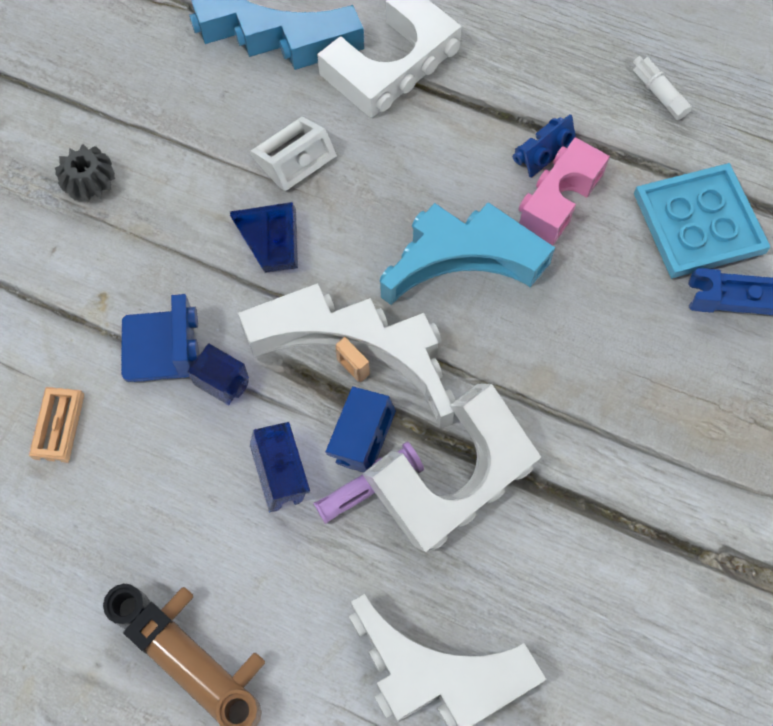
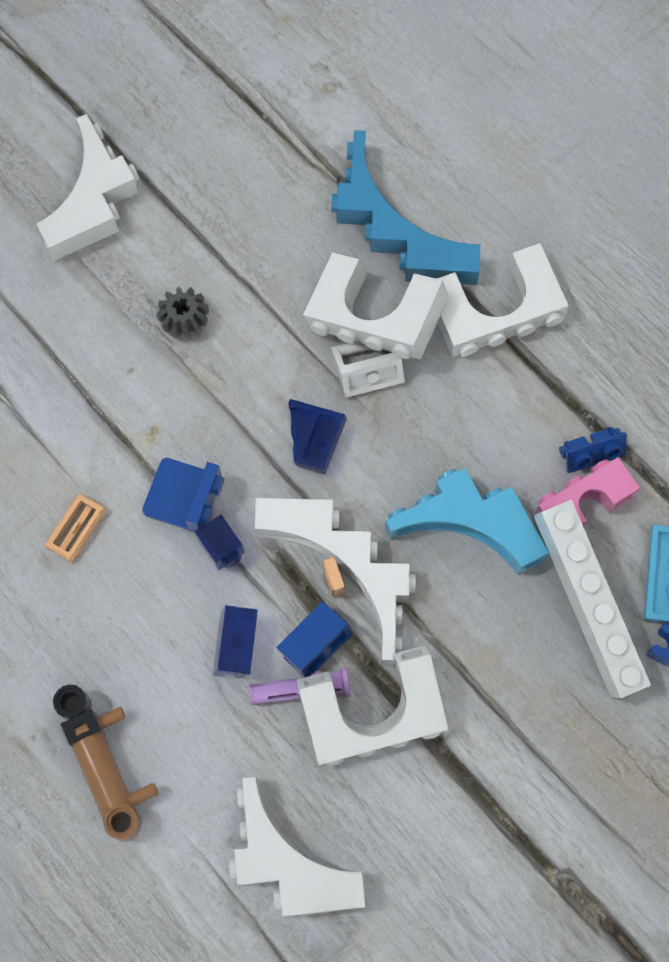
camera: 25 degrees right, 5 degrees up
(313, 103) = (401, 332): none -> white arch
(619, 272) = (592, 600): none -> white brick

